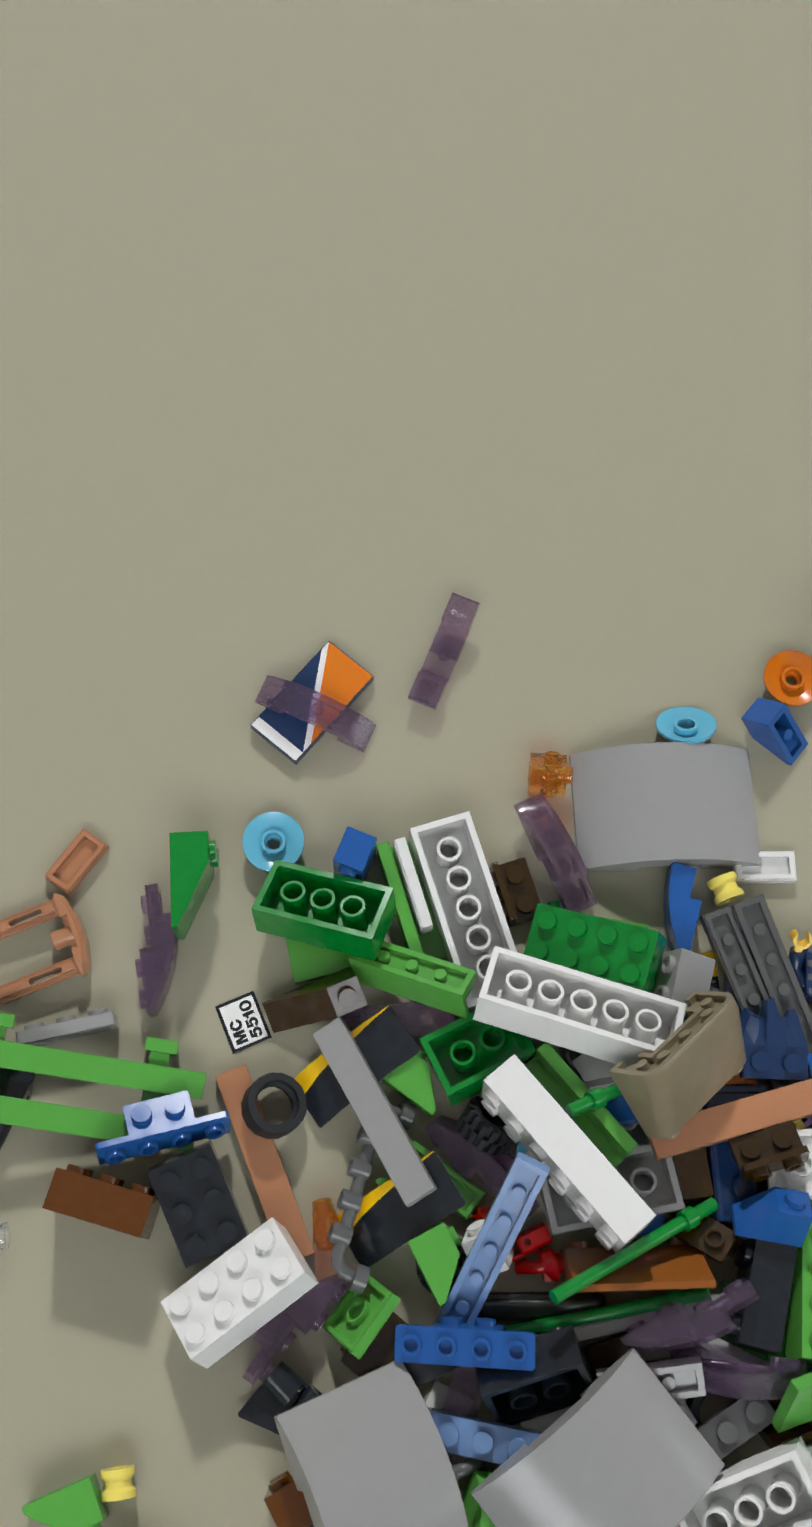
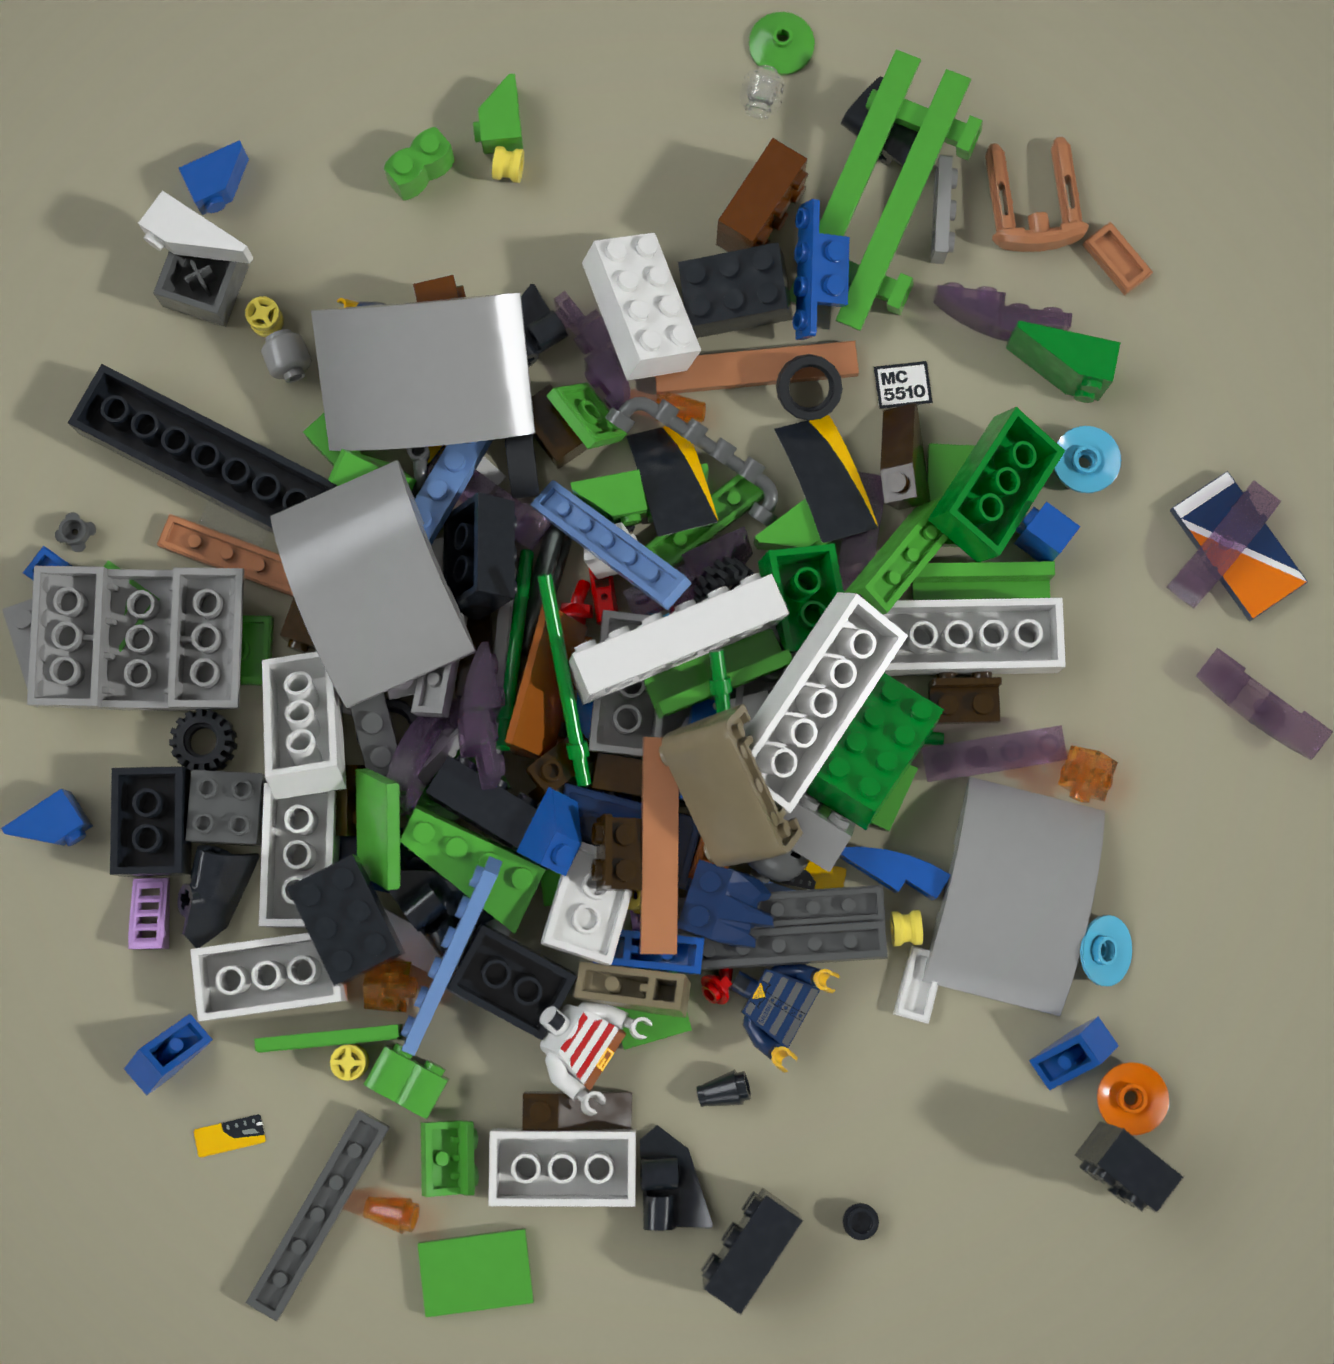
camera: 110 degrees right, 10 degrees up
(375, 1112) = (775, 477): light grey tile -> none
(412, 886) = (1000, 589): white tile -> none
(465, 1344) = (528, 494): blue bracket -> none

